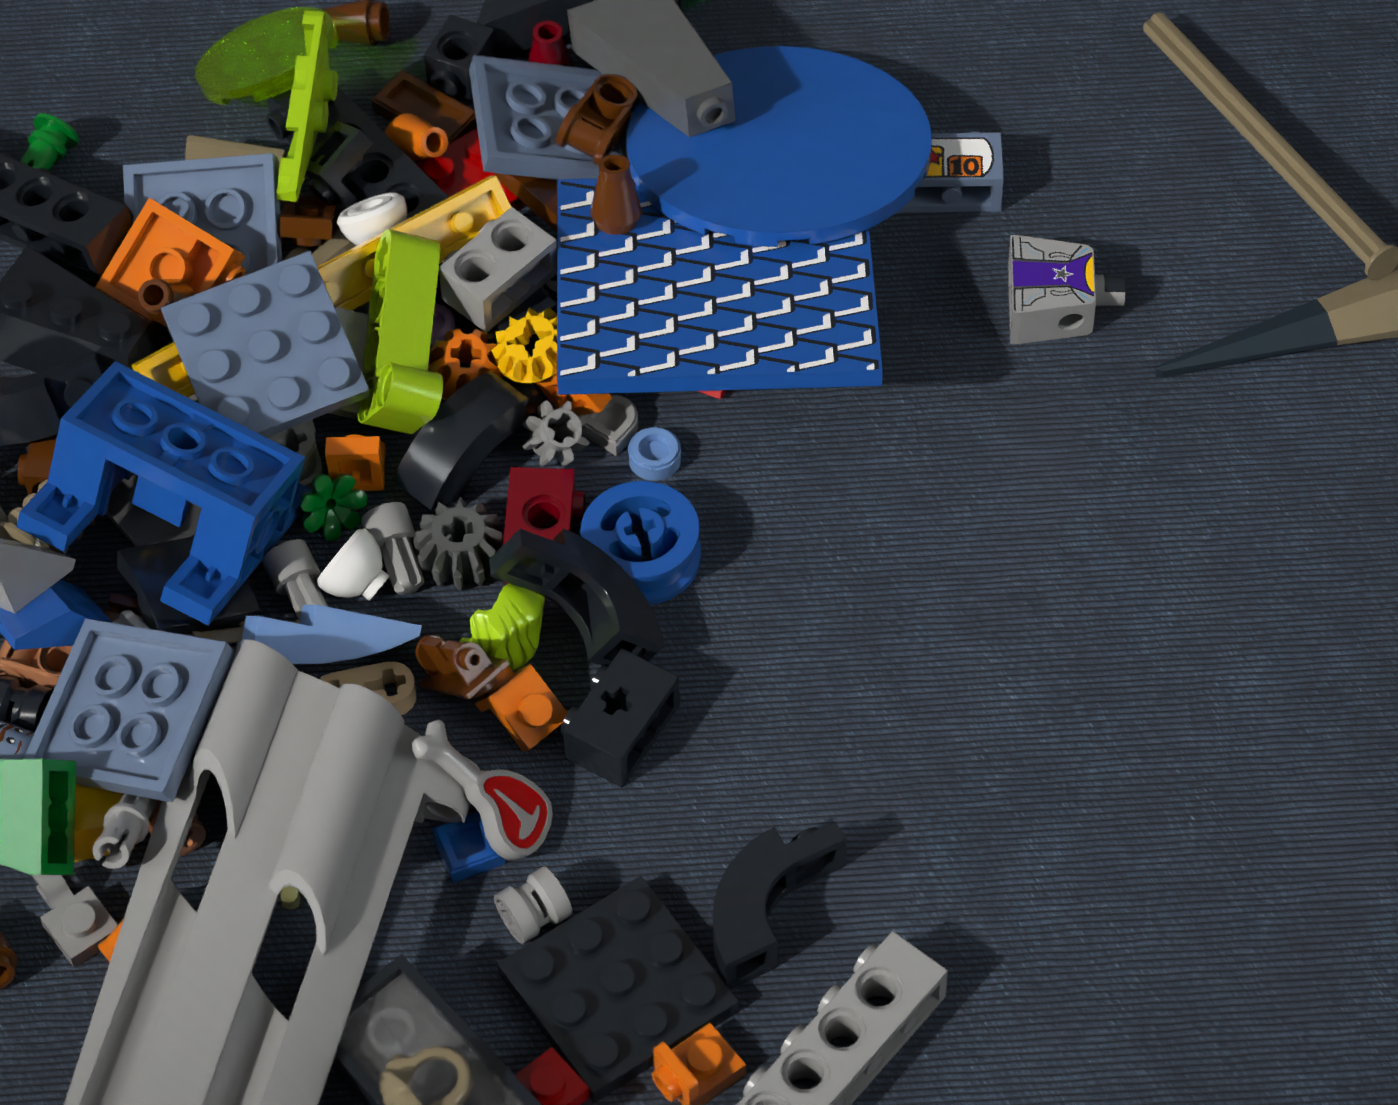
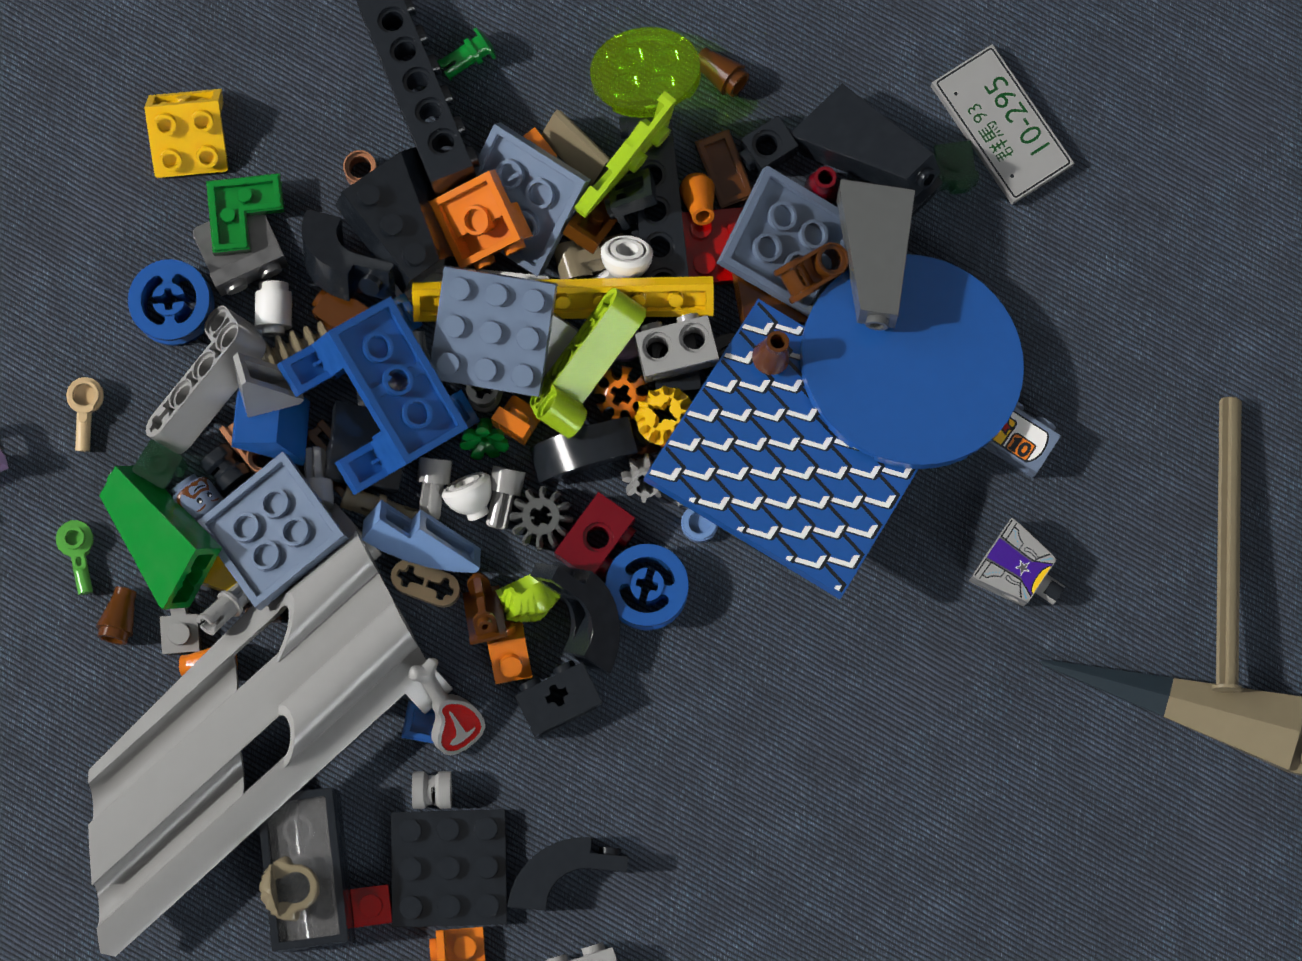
camera: 30 degrees right, 25 degrees up
(160, 293) = (459, 250): reddish brown cone -> none

